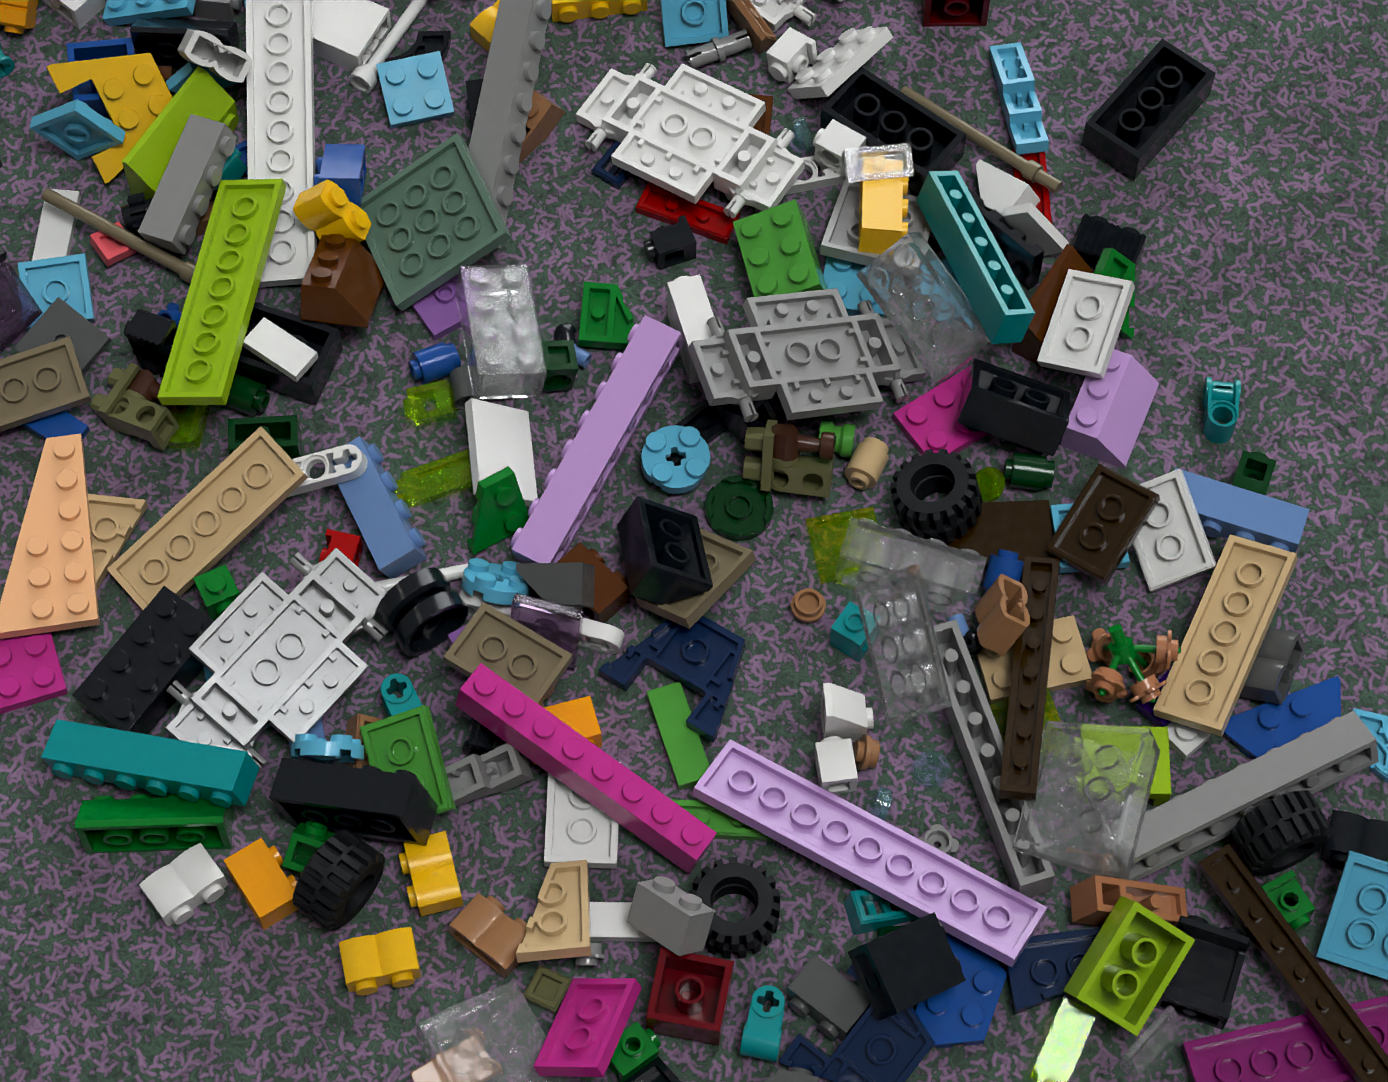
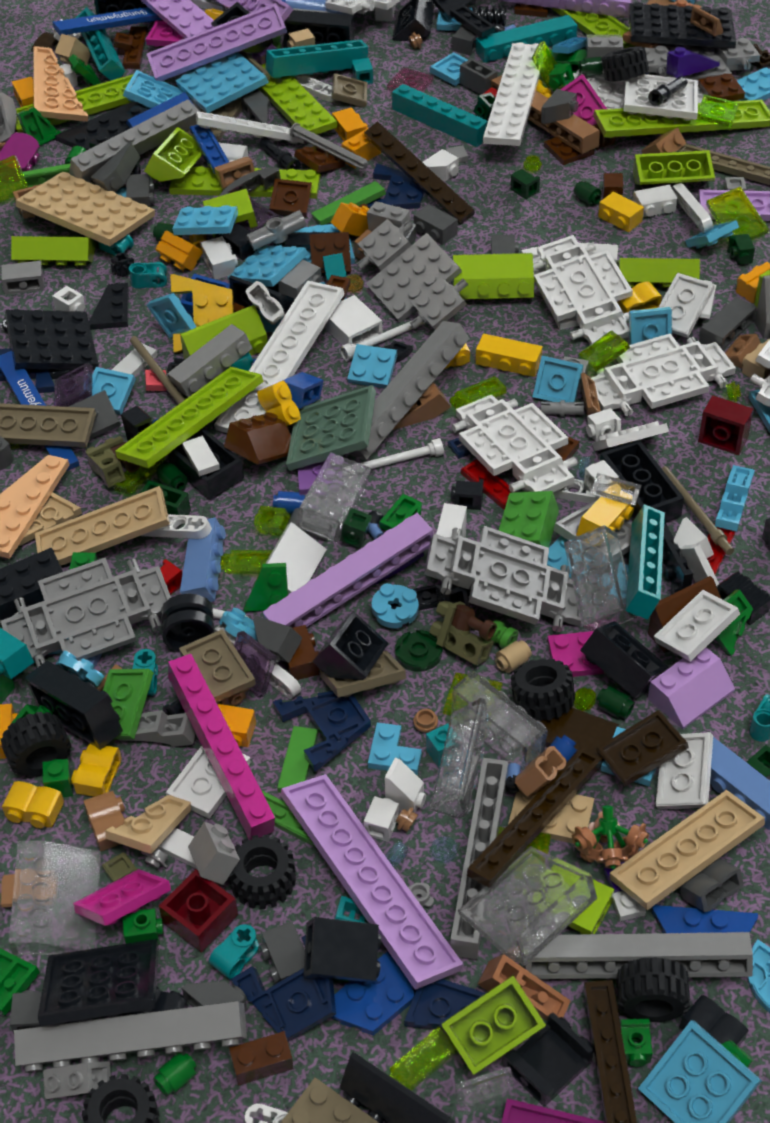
camera: 30 degrees right, 15 degrees down
(390, 907) = (58, 775): none -> green brick
(581, 188) = (434, 448): none -> white piece
(589, 72) = (478, 391): none -> clear neon green hinge
(790, 675) = (386, 749): none -> medium azure plate

